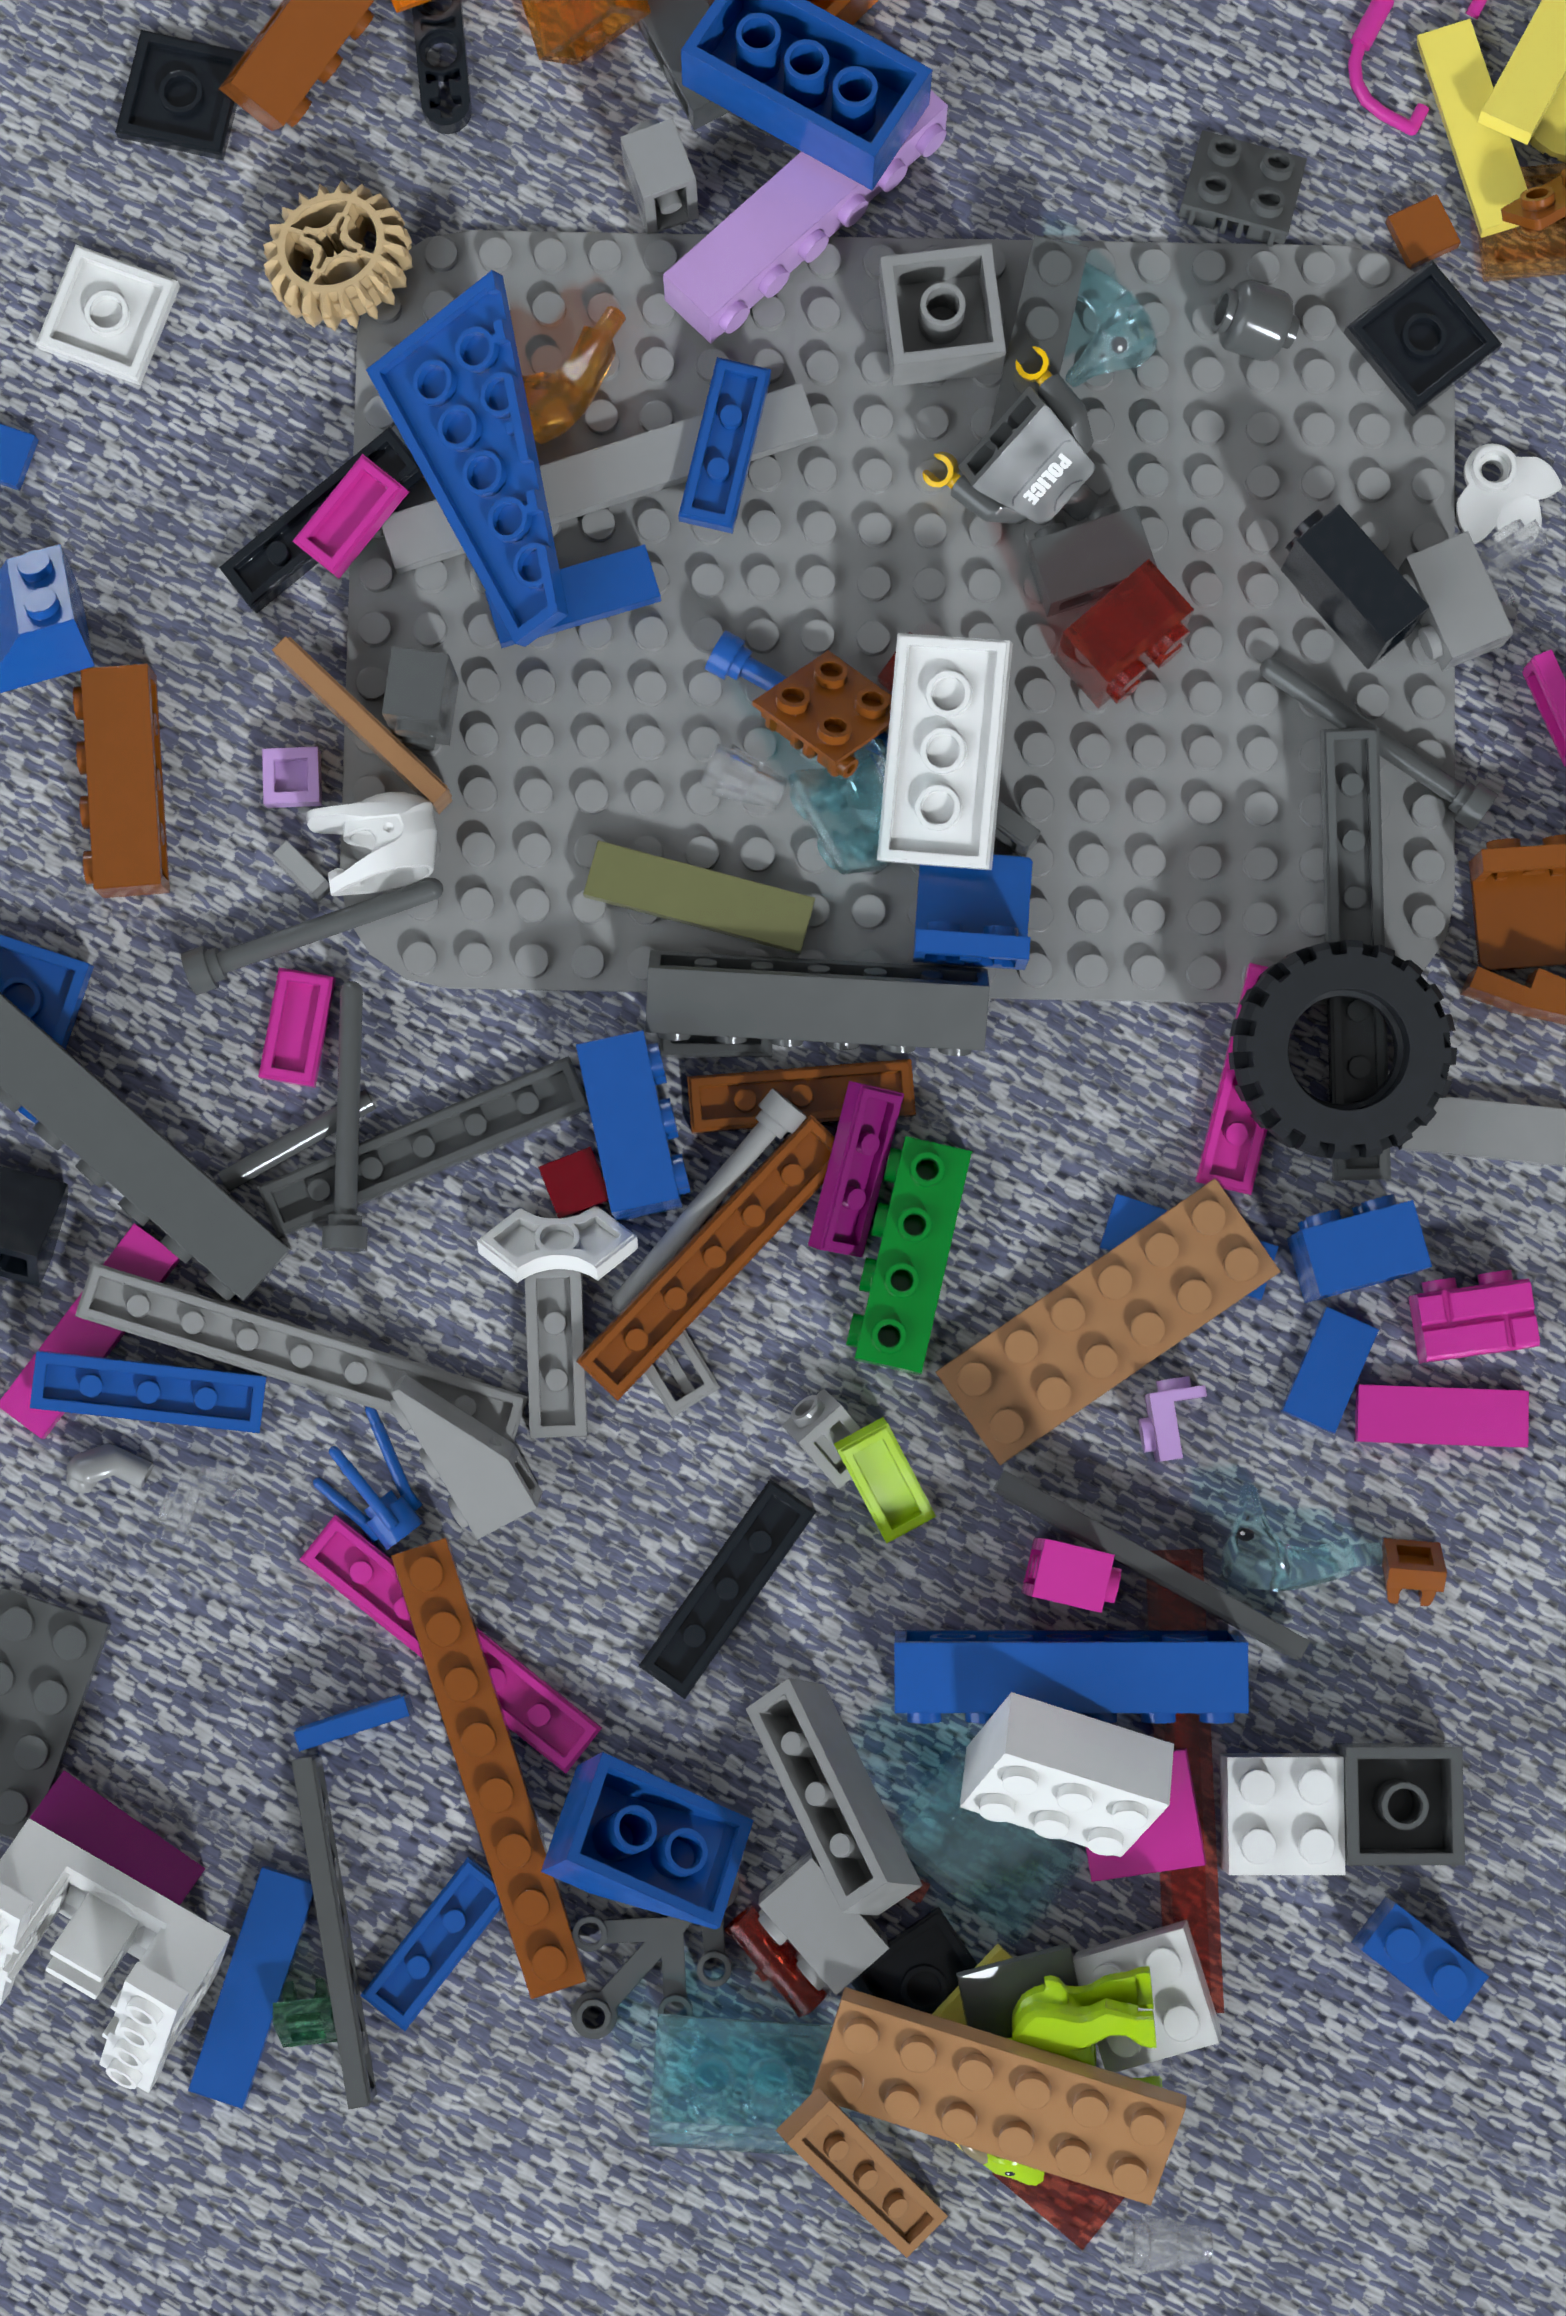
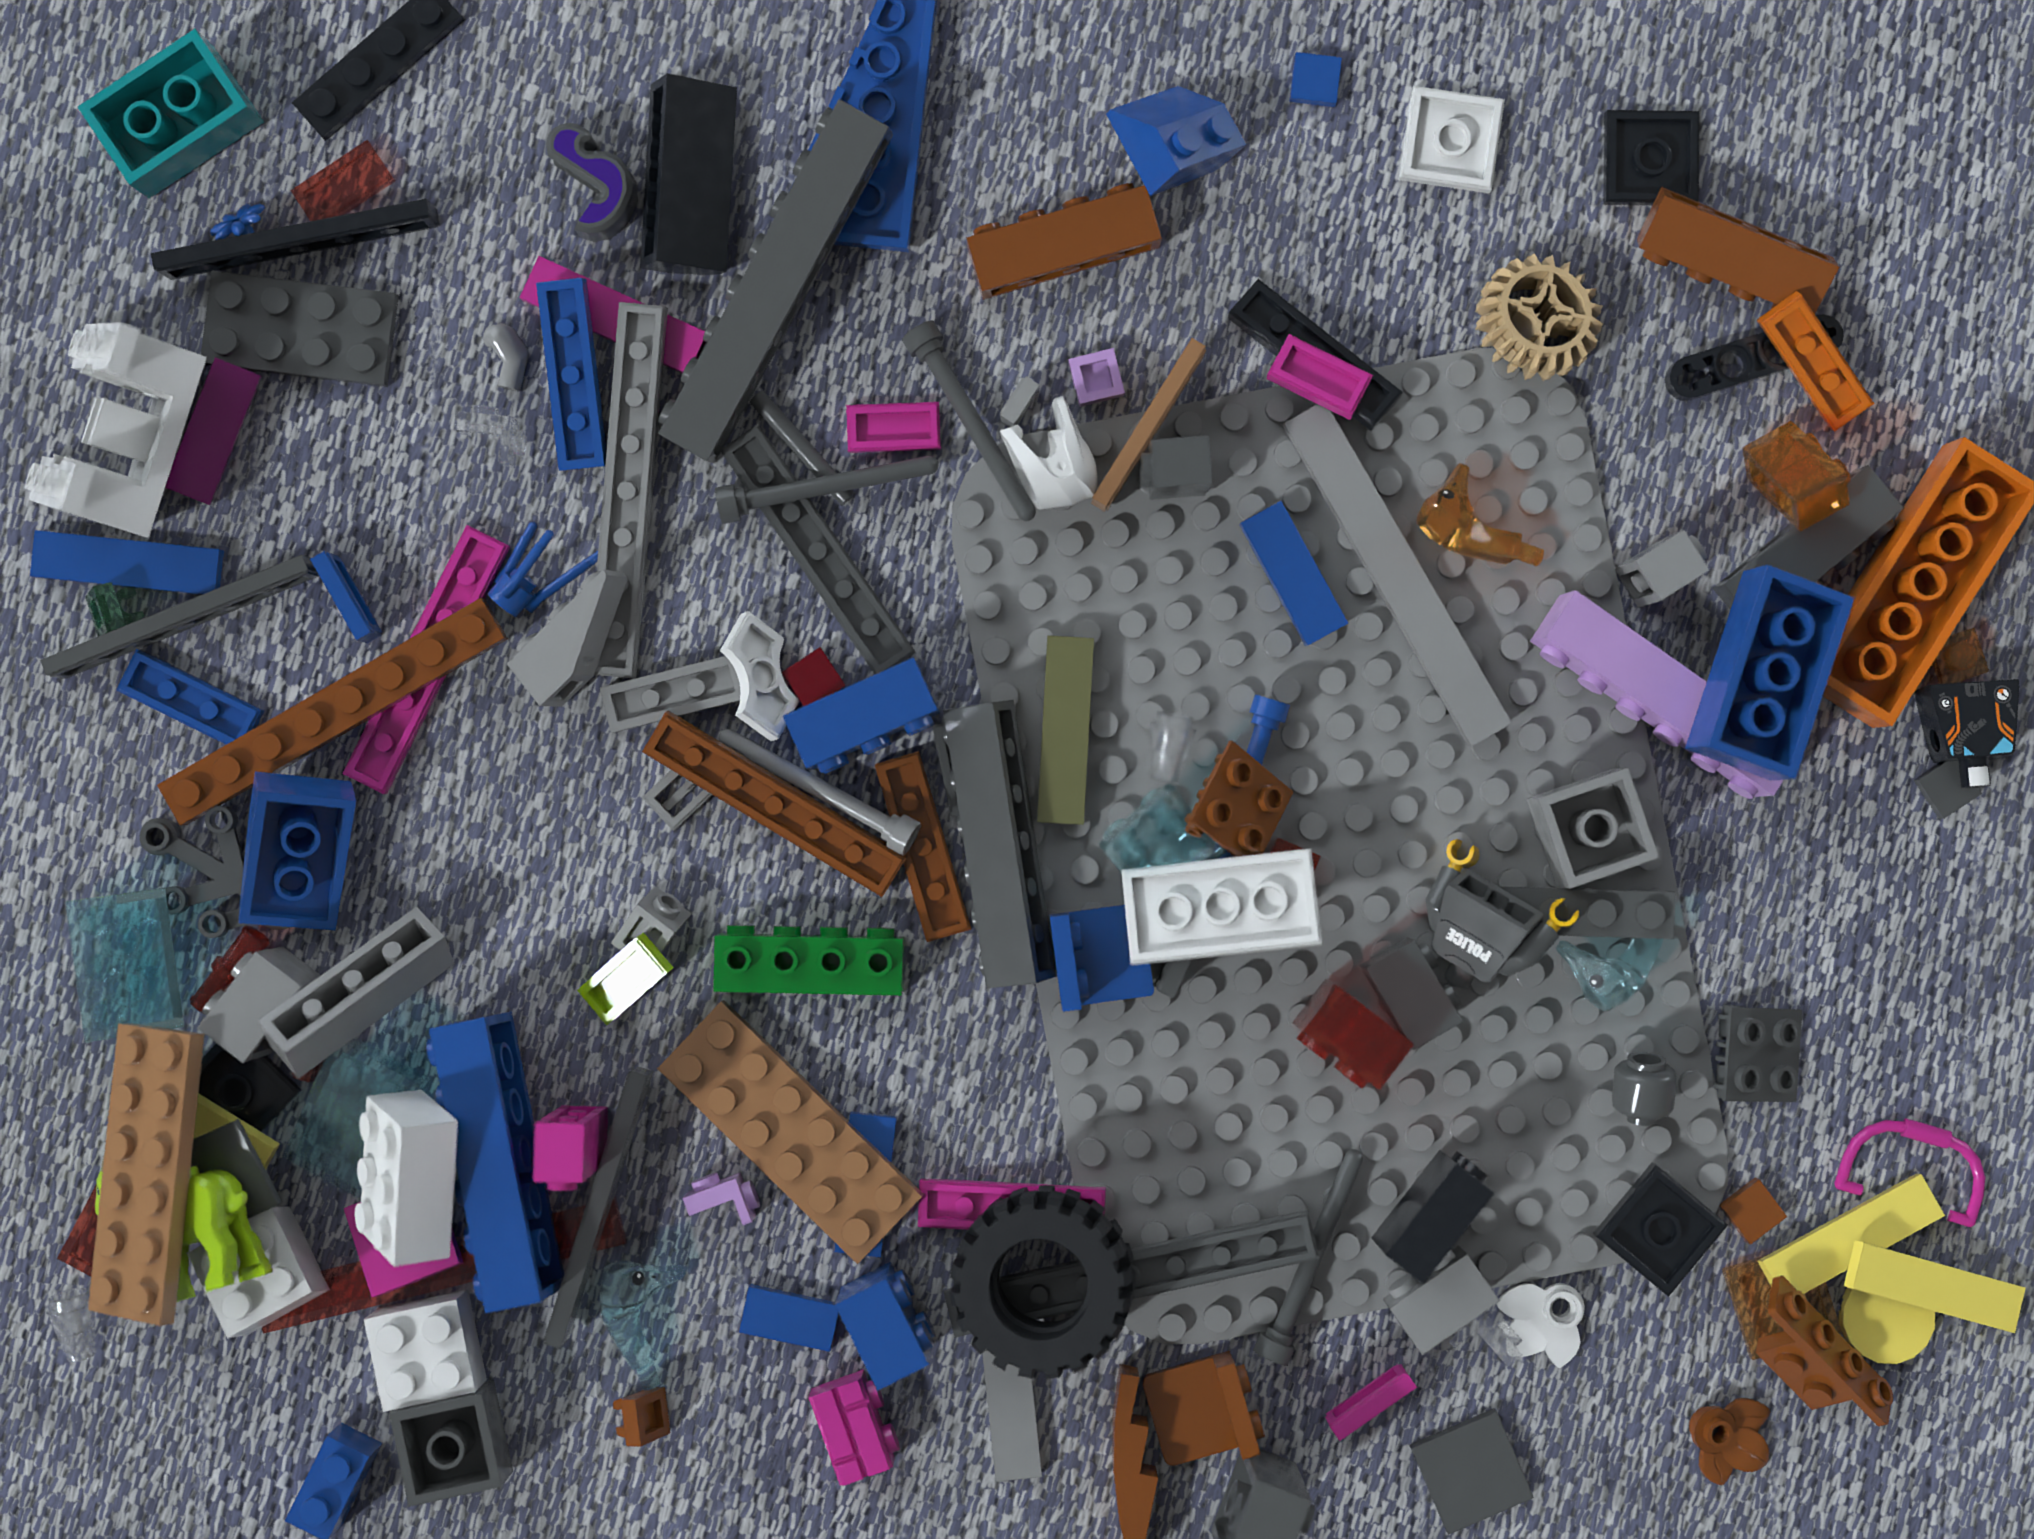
camera: 75 degrees right, 5 degrees up
(469, 428) = (1412, 457): blue wing -> none
(724, 445) = (1444, 671): blue tile -> none
(727, 1589) = (515, 870): black tile -> none
(855, 1169) = (869, 903): magenta tile -> none
(861, 2172) = (70, 1074): medium nougat plate -> none
(1442, 1416) = (771, 1415): dark pink tile -> none

